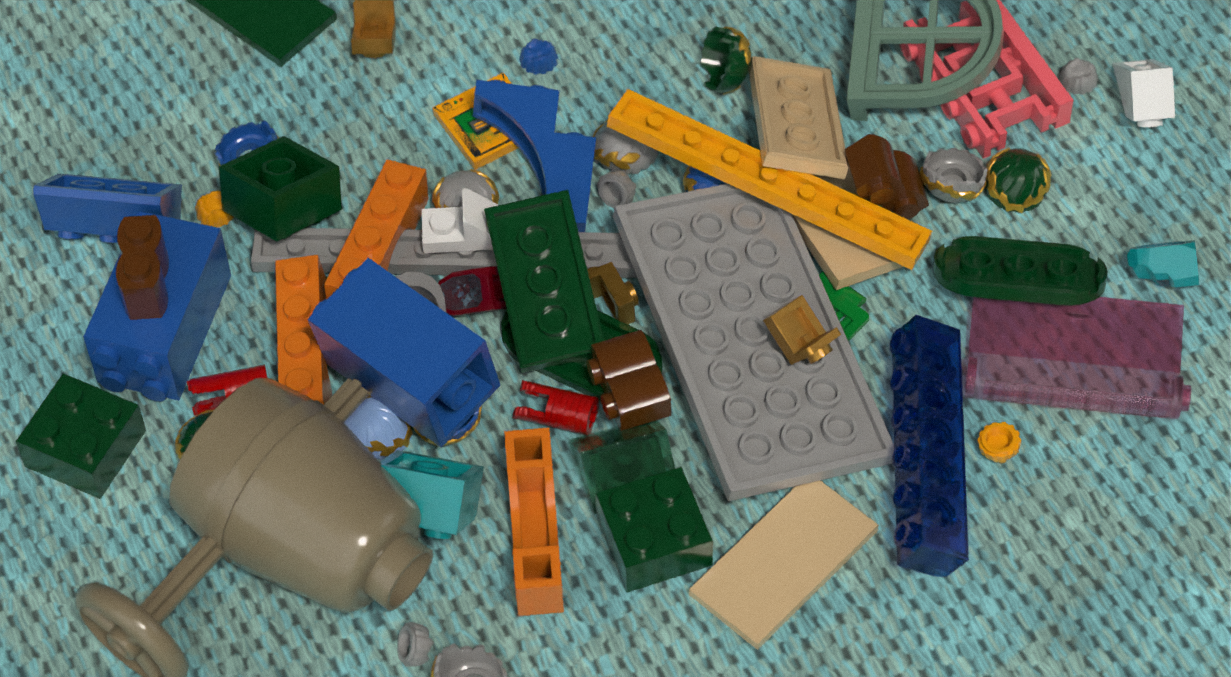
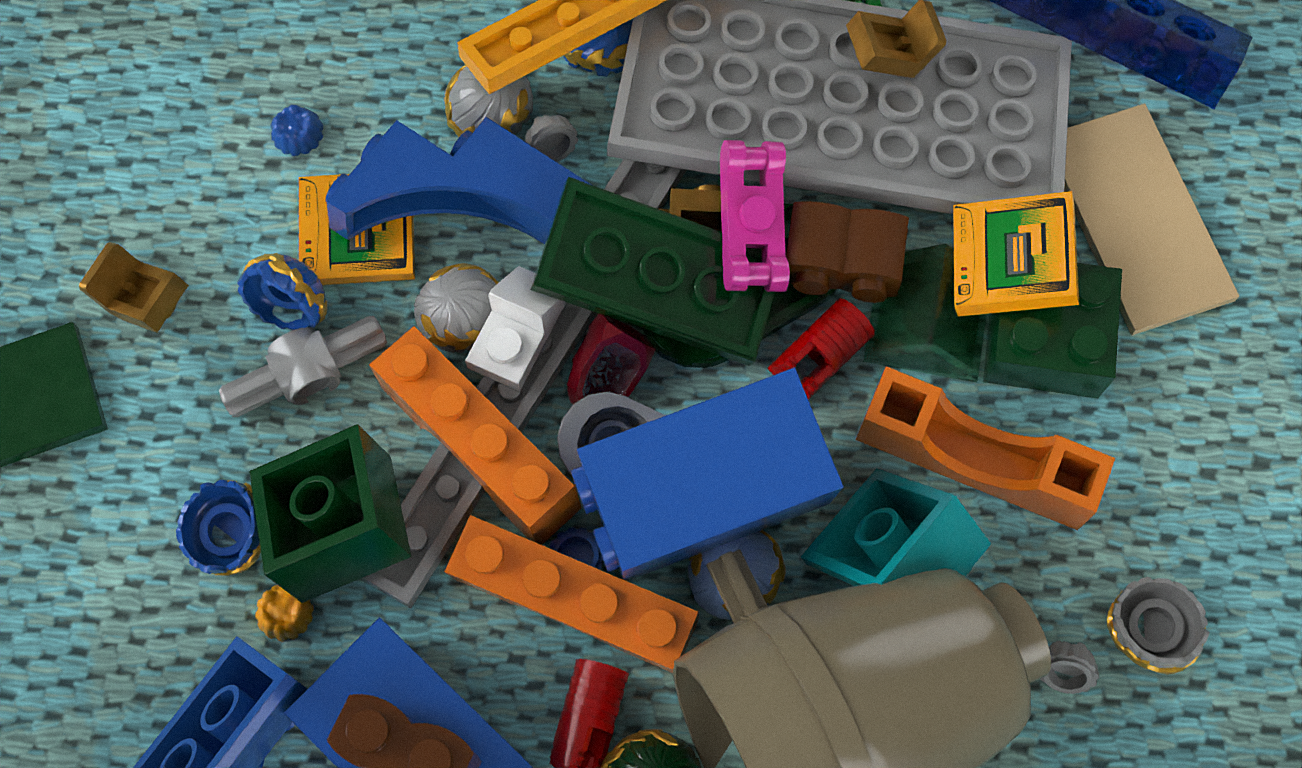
camera: 65 degrees left, 15 degrees up
(374, 136) = (302, 365): none -> light grey axle
(417, 100) = (284, 283): none -> blue hair
(611, 307) = (753, 216): none -> dark pink plate
(677, 465) = (1015, 254): none -> light orange tile

